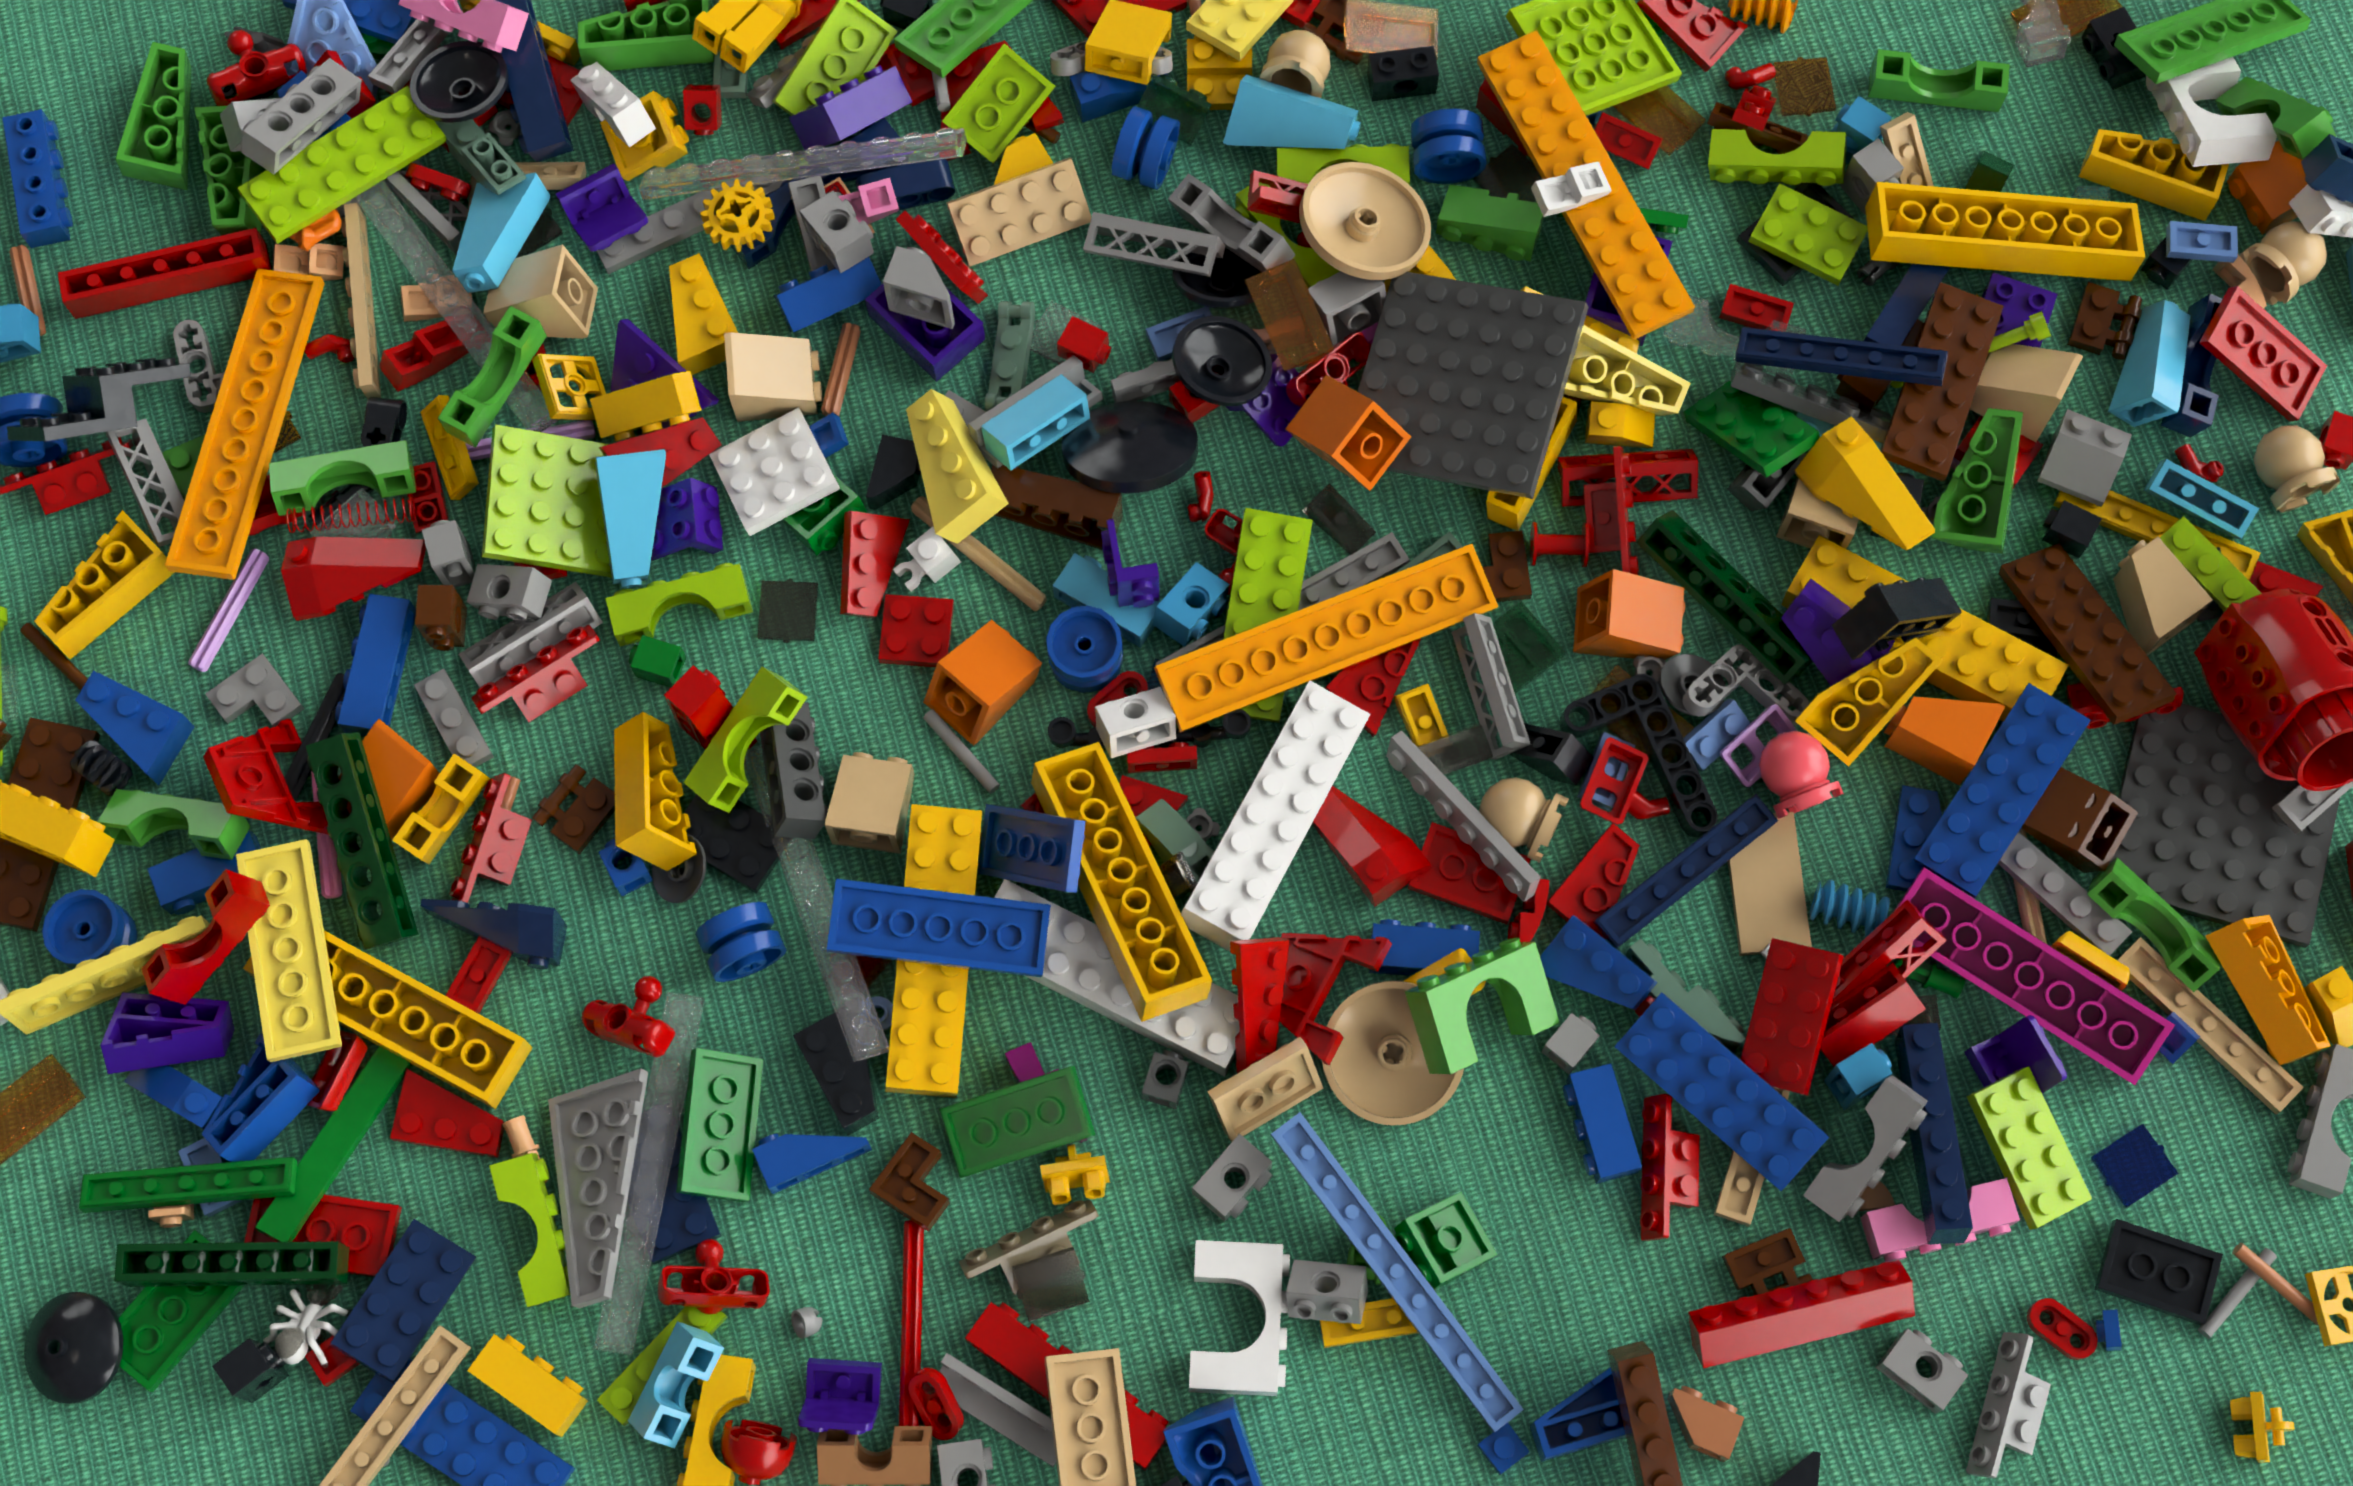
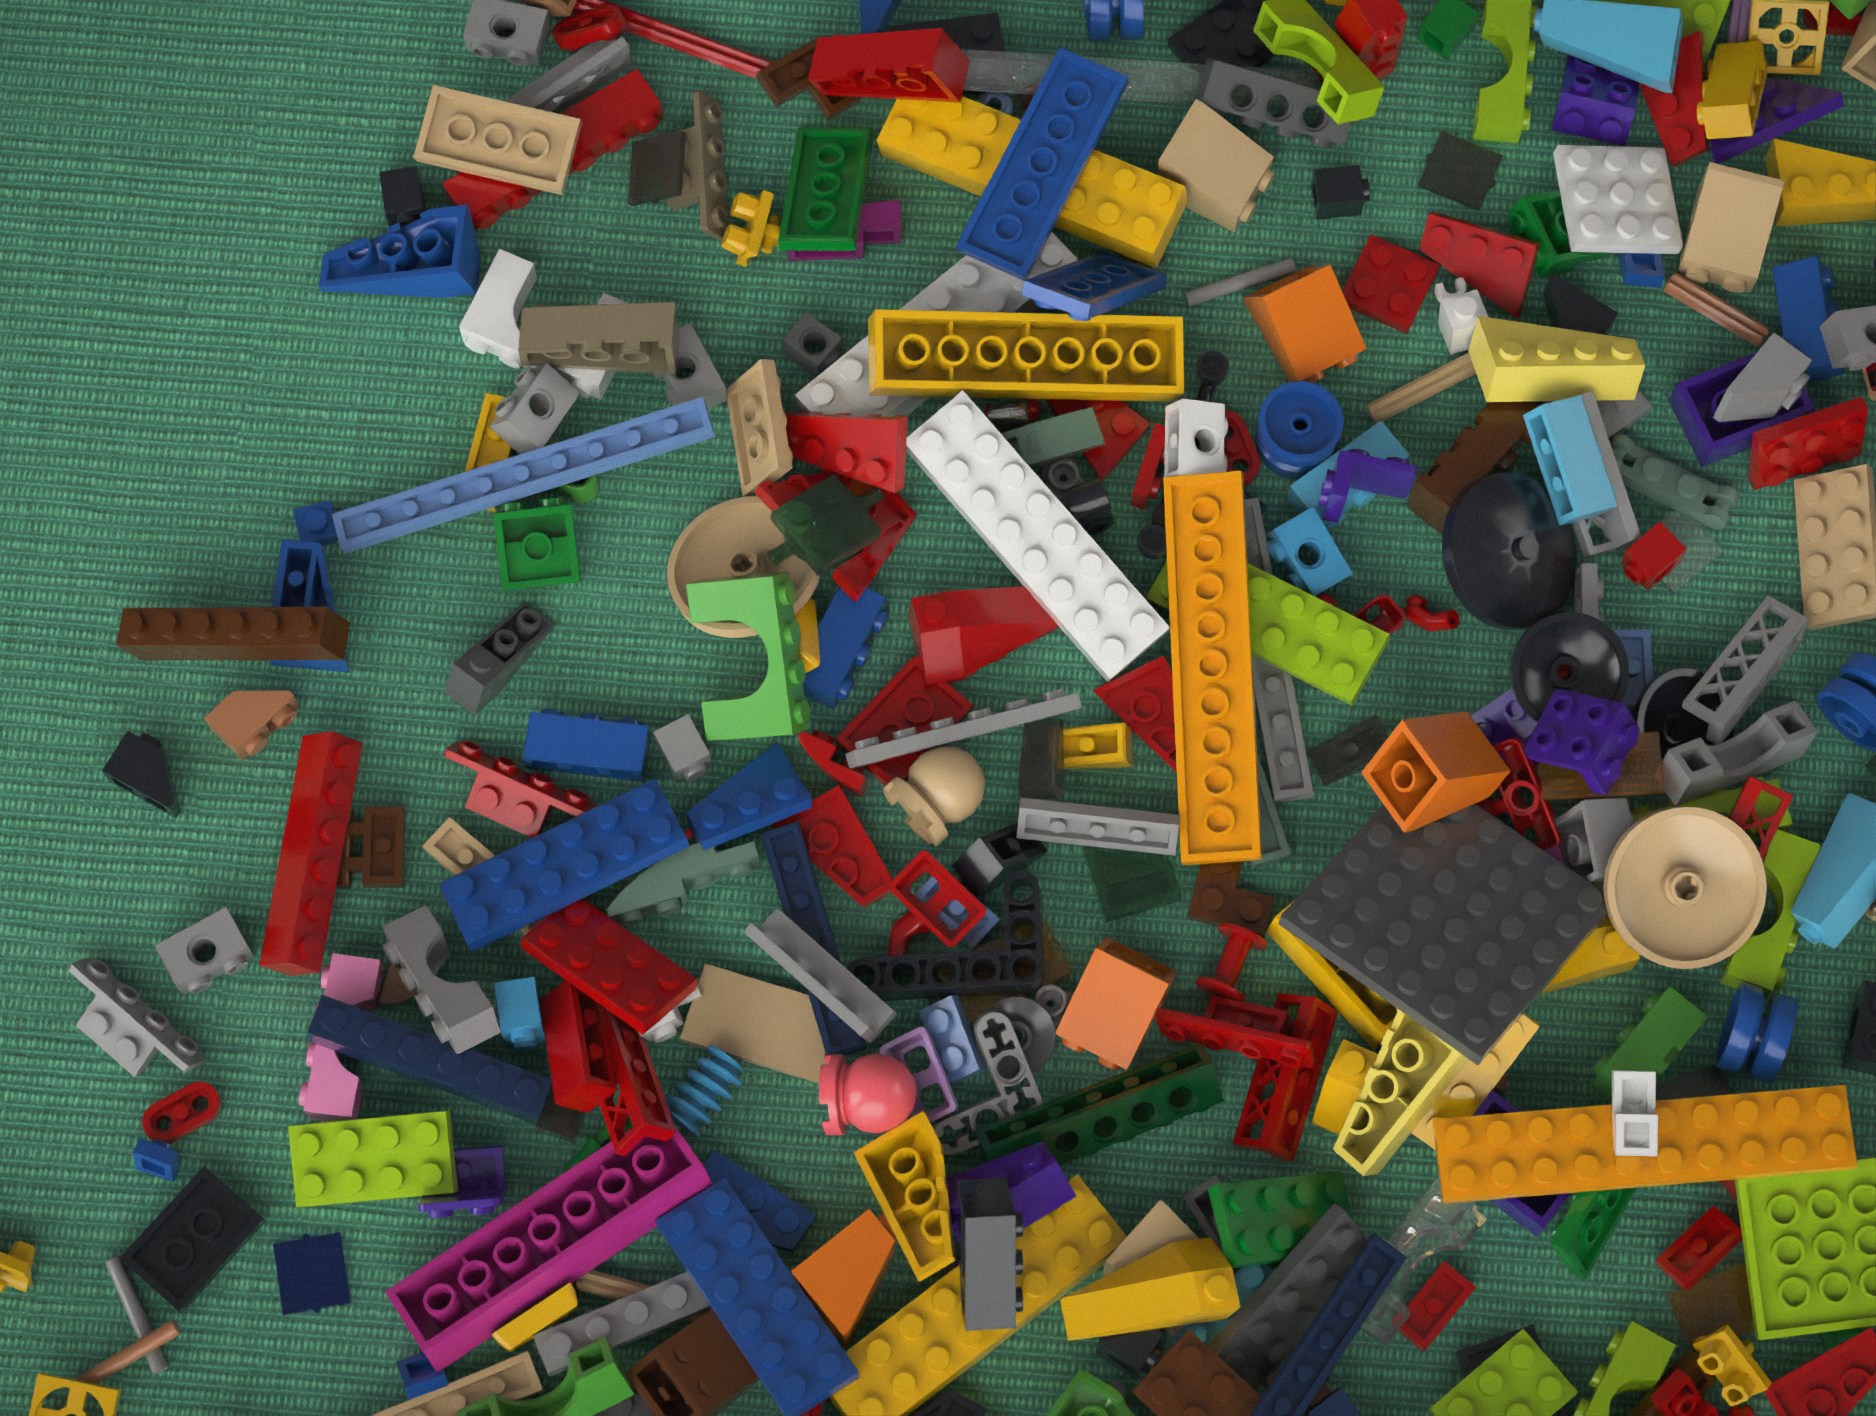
camera: 110 degrees right, 0 degrees up
(850, 696) = (1339, 192): none -> black brick
(893, 1099) = (890, 66): none -> red wedge
(1221, 790) = (1090, 506): none -> black piece
(1246, 1252) = (602, 337): none -> dark tan wedge
(1278, 329) = (1584, 736): none -> dark purple bracket
(1338, 990) = (825, 525): none -> clear green plate
(1557, 1232) = (496, 658): none -> dark grey slope
(1706, 89) = (1732, 1364): none -> yellow hips
(1720, 845) = (822, 975): none -> light grey fence

